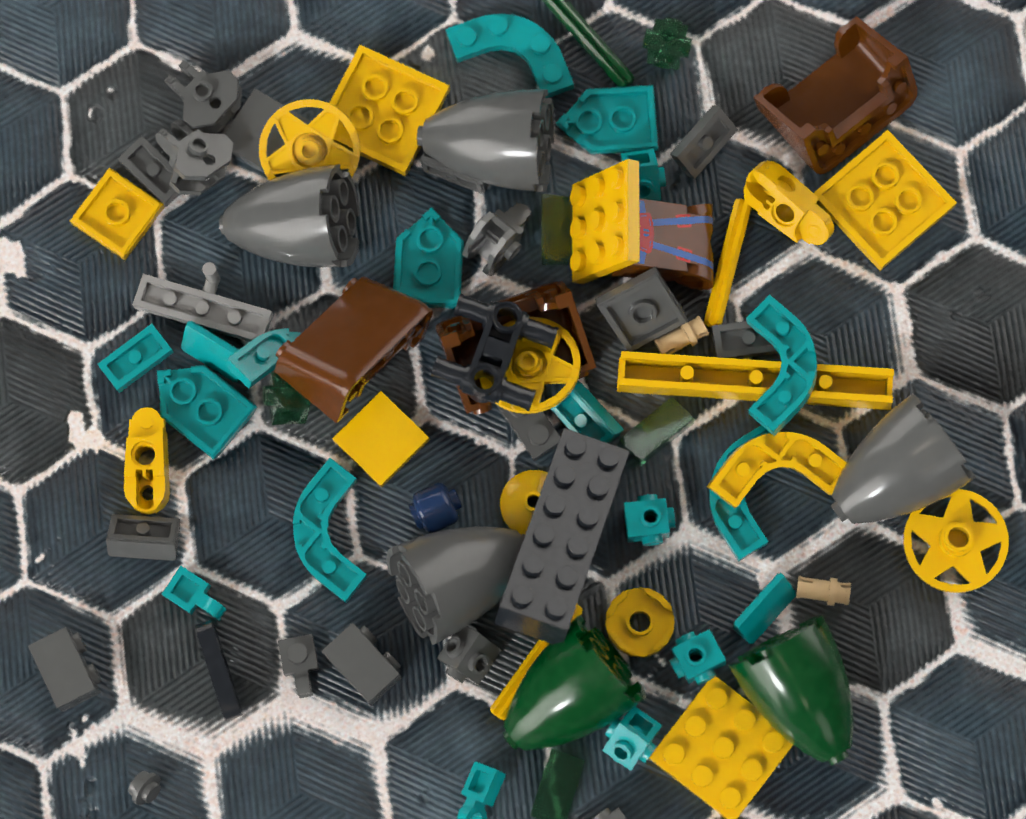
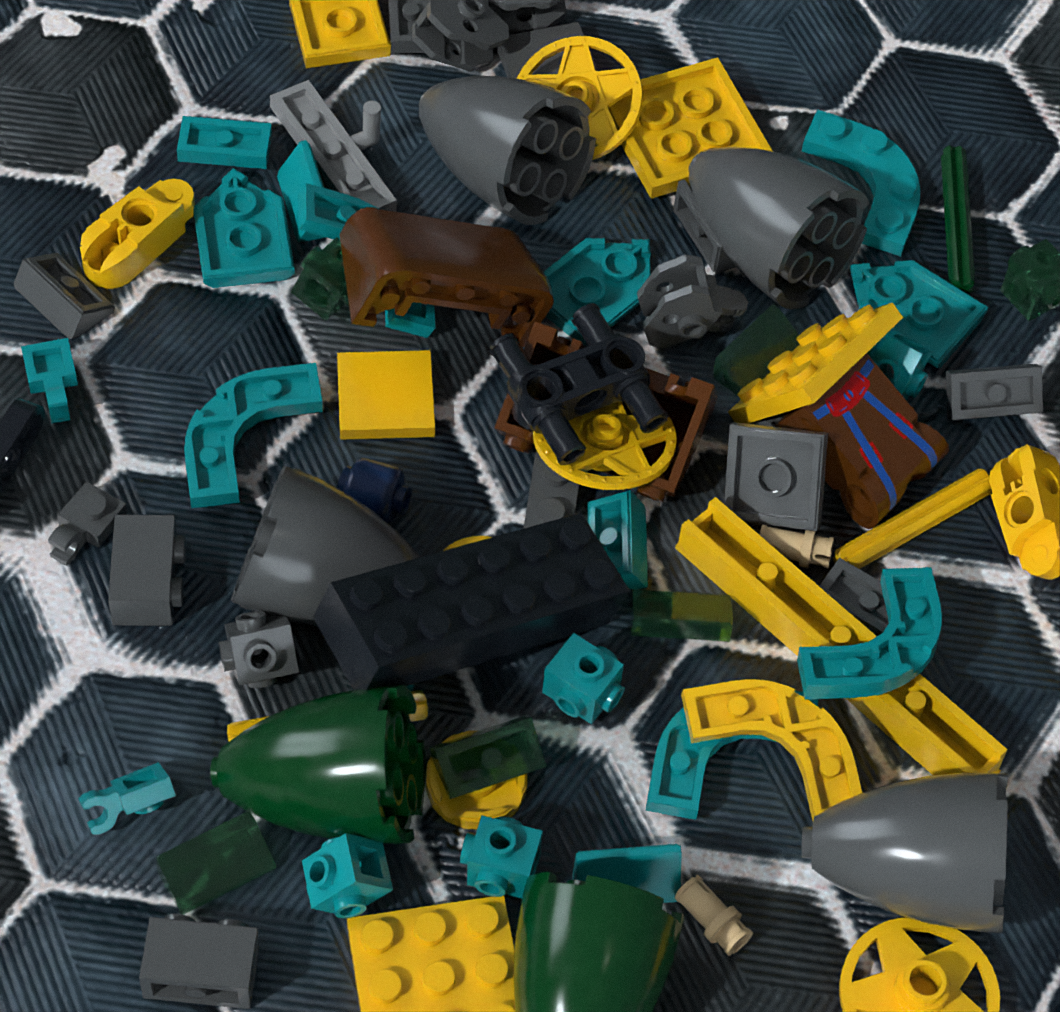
camera: 30 degrees right, 20 degrees down
(637, 607) = (488, 756): none -> clear green slope

